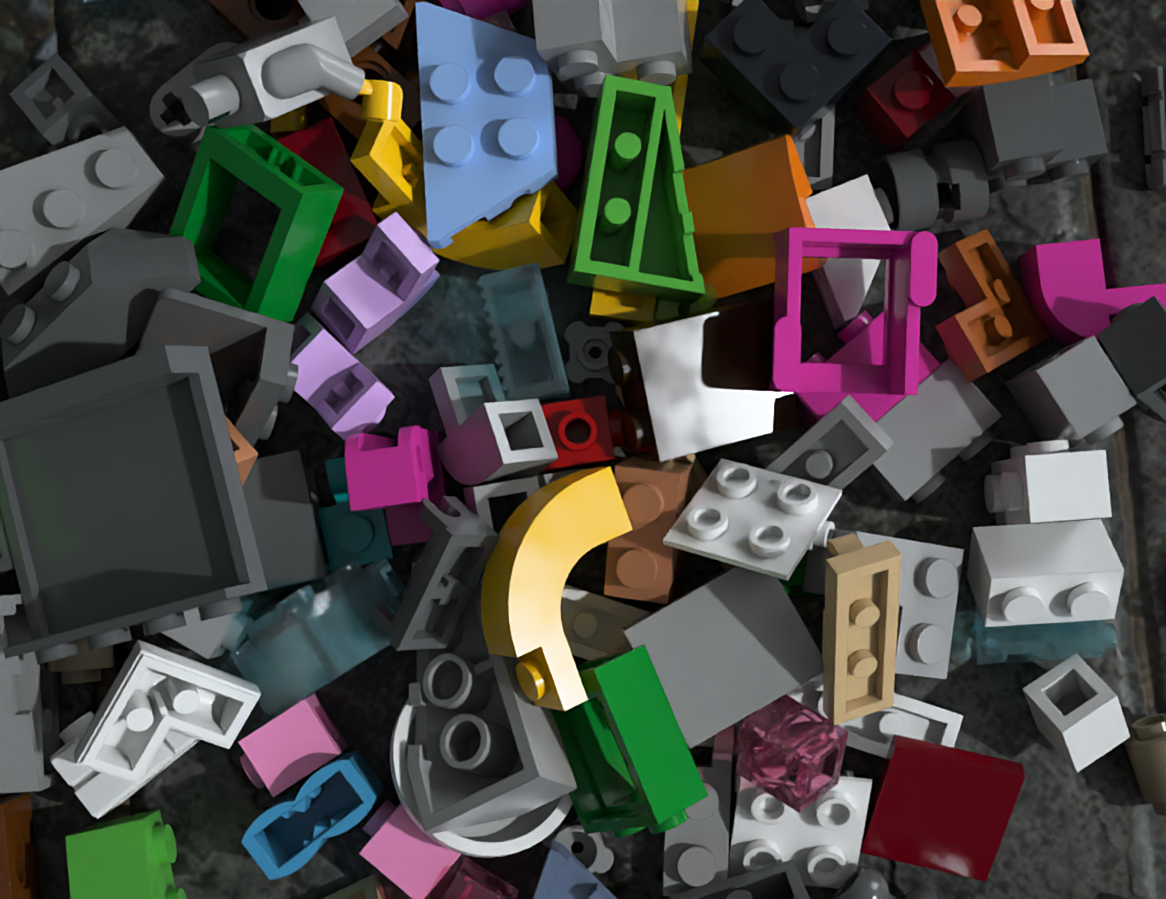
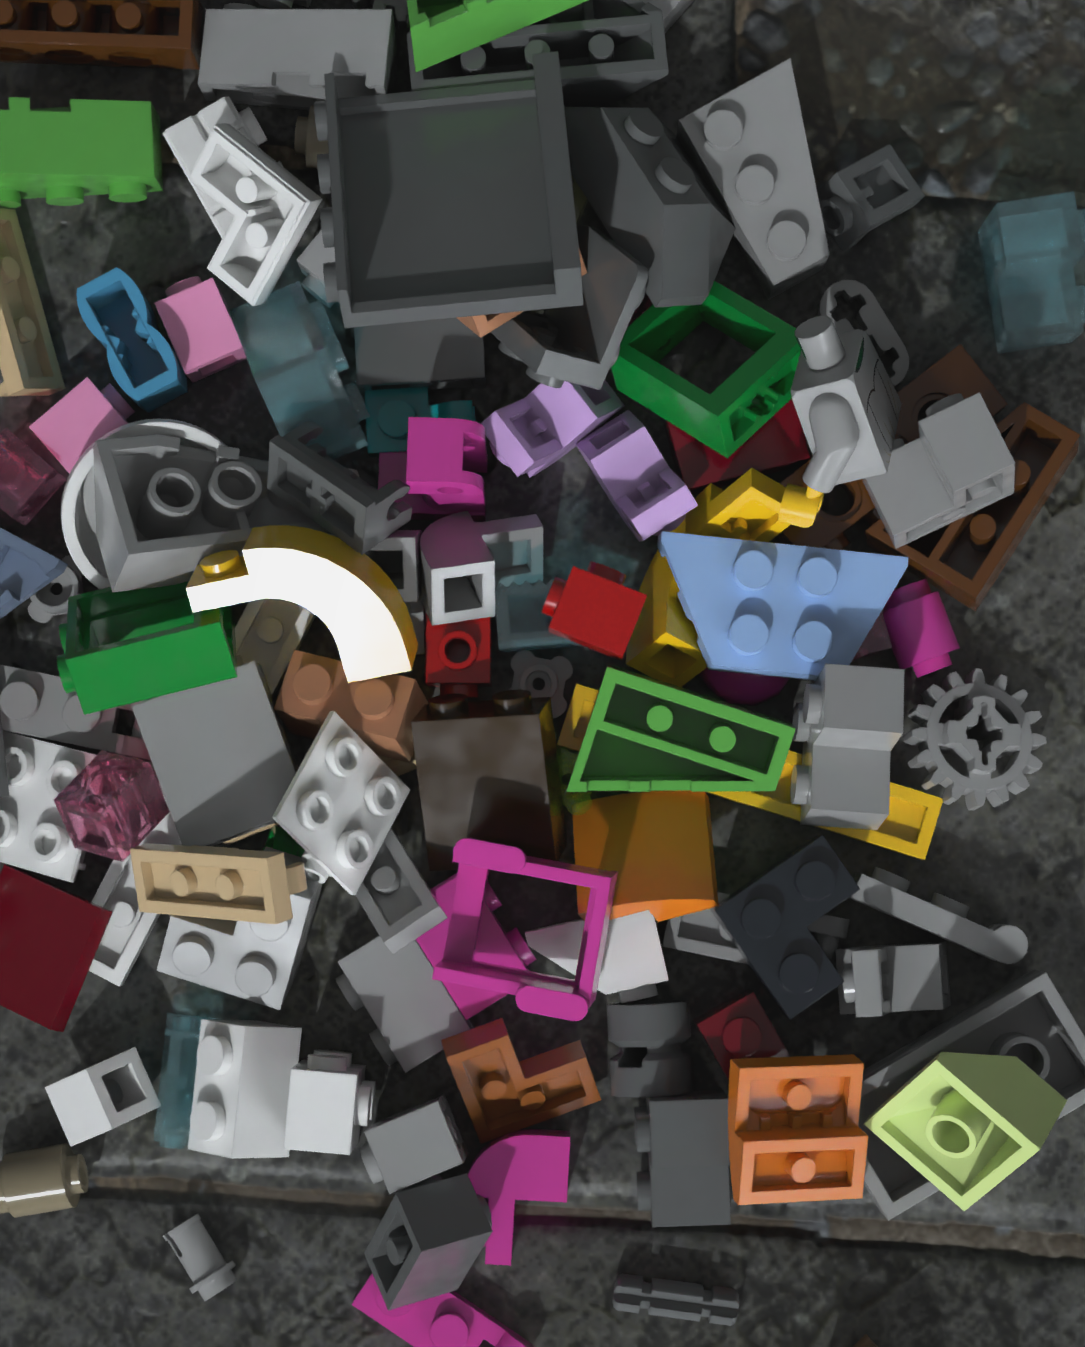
camera: 105 degrees right, 0 degrees up
(517, 292) = (594, 609): none -> red brick

